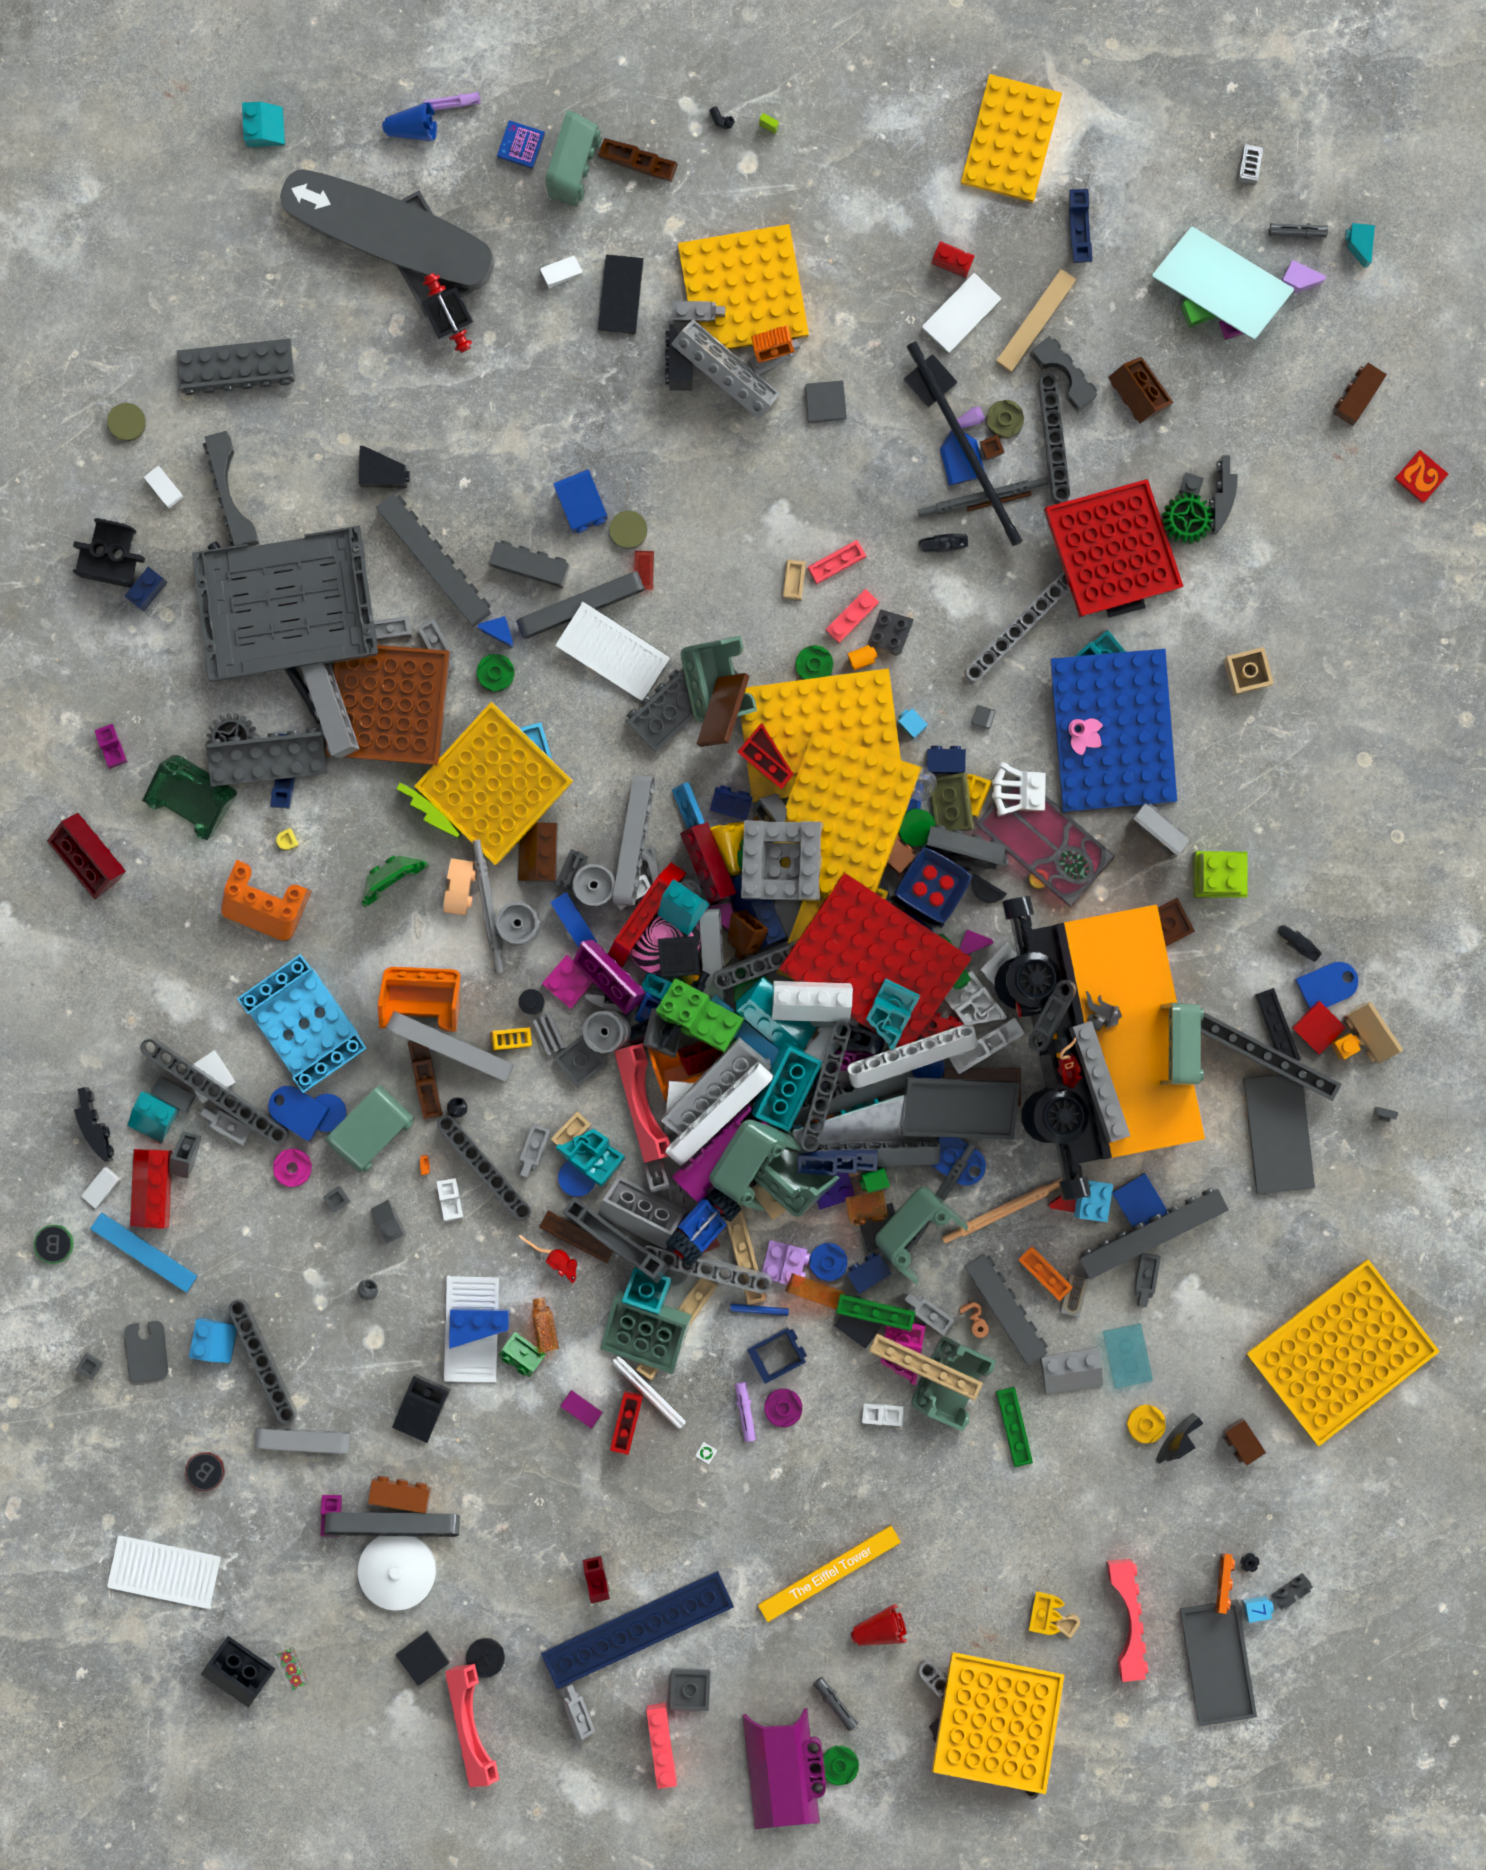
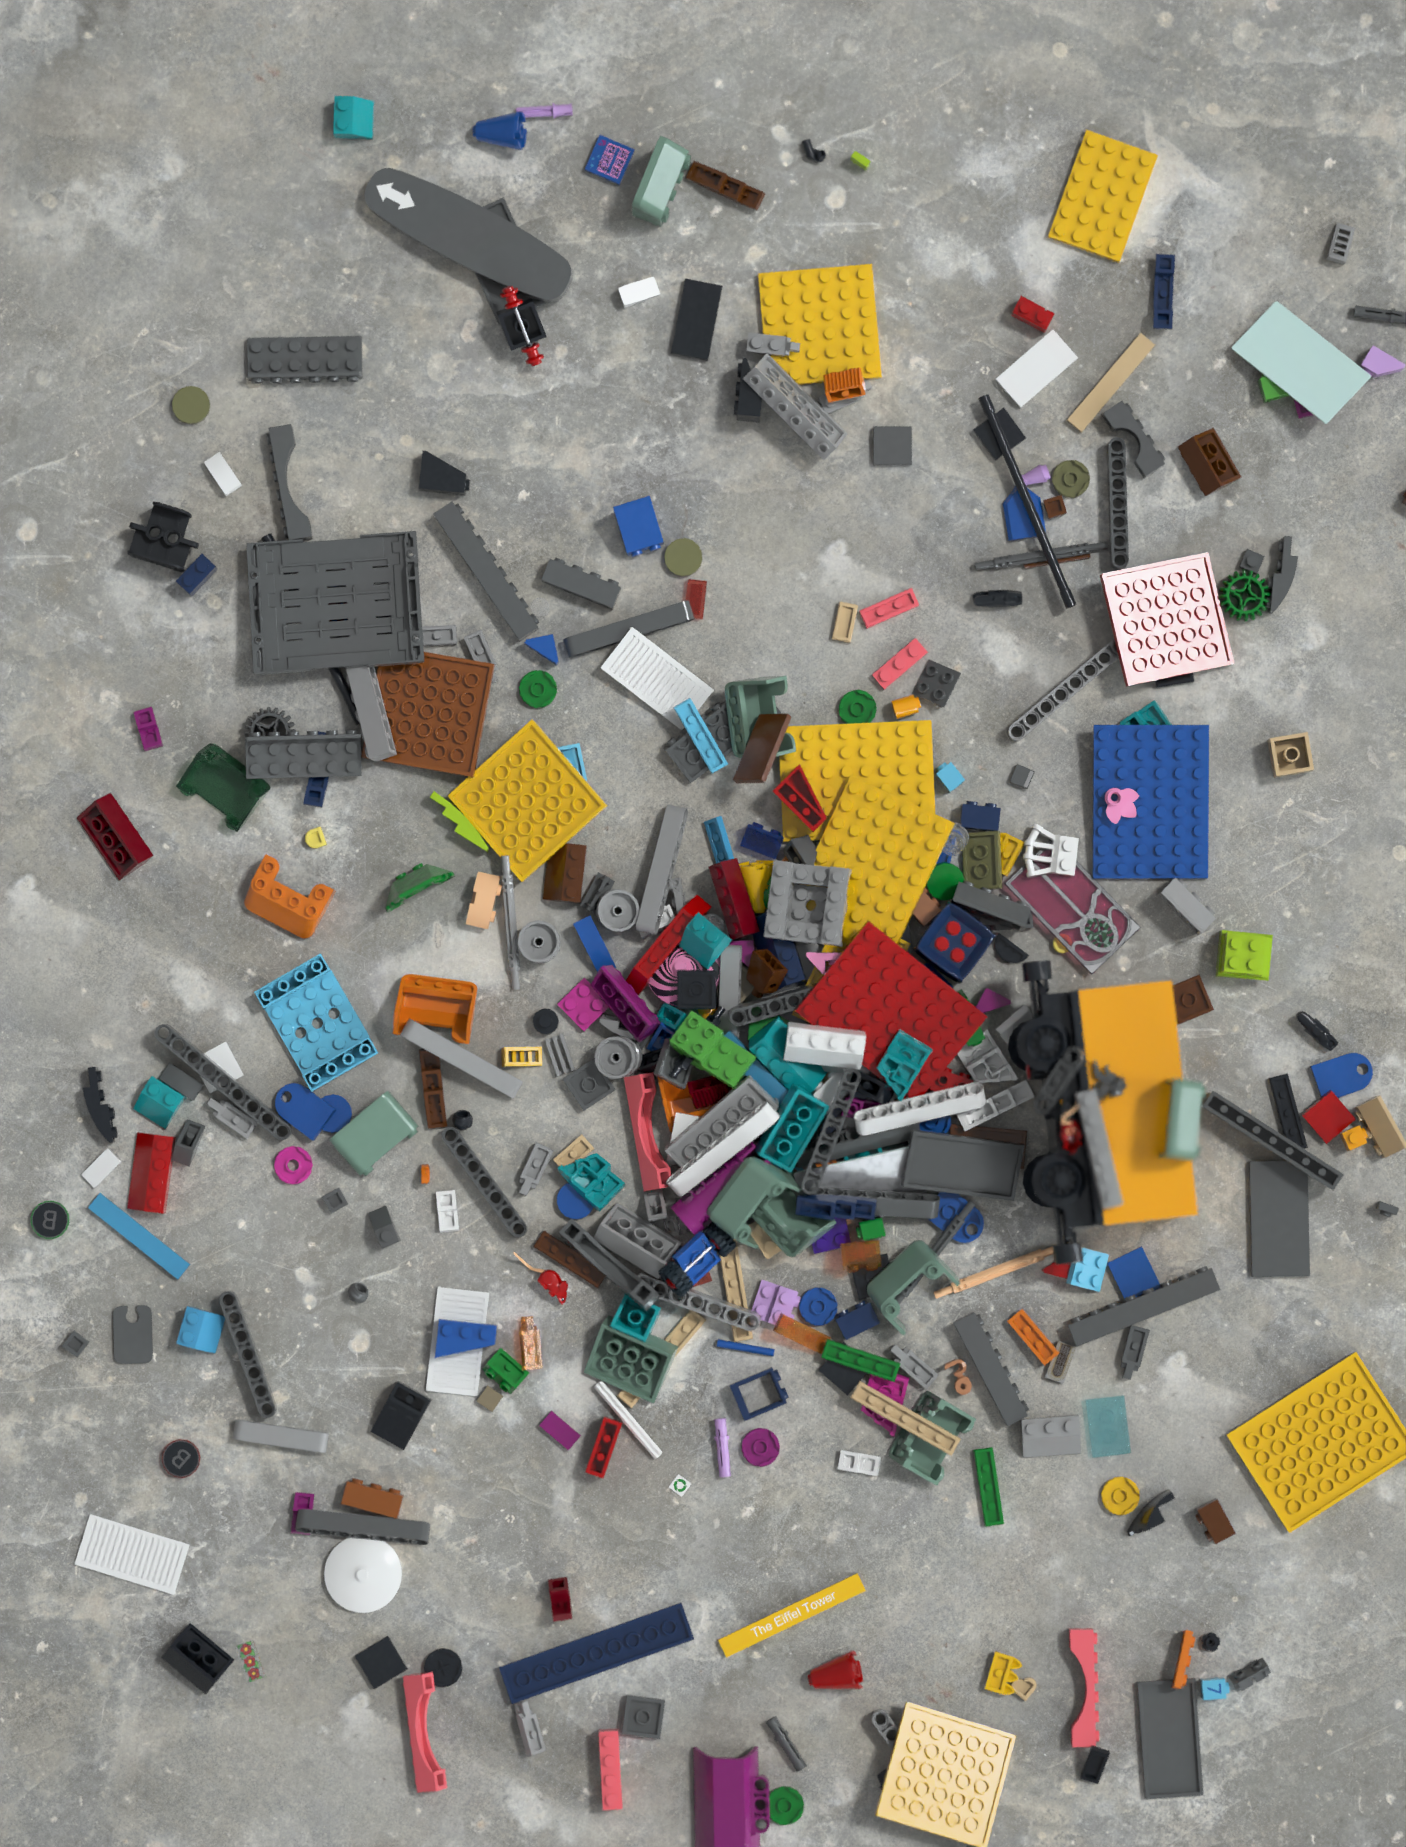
camera: 10 degrees right, 0 degrees up
(508, 1383) = (489, 1398): none -> dark tan tile
(660, 703) = (700, 735): none -> medium azure tile
(798, 915) = (819, 959): none -> bright pink slope
(1146, 1696) = (1094, 1764): none -> black tile

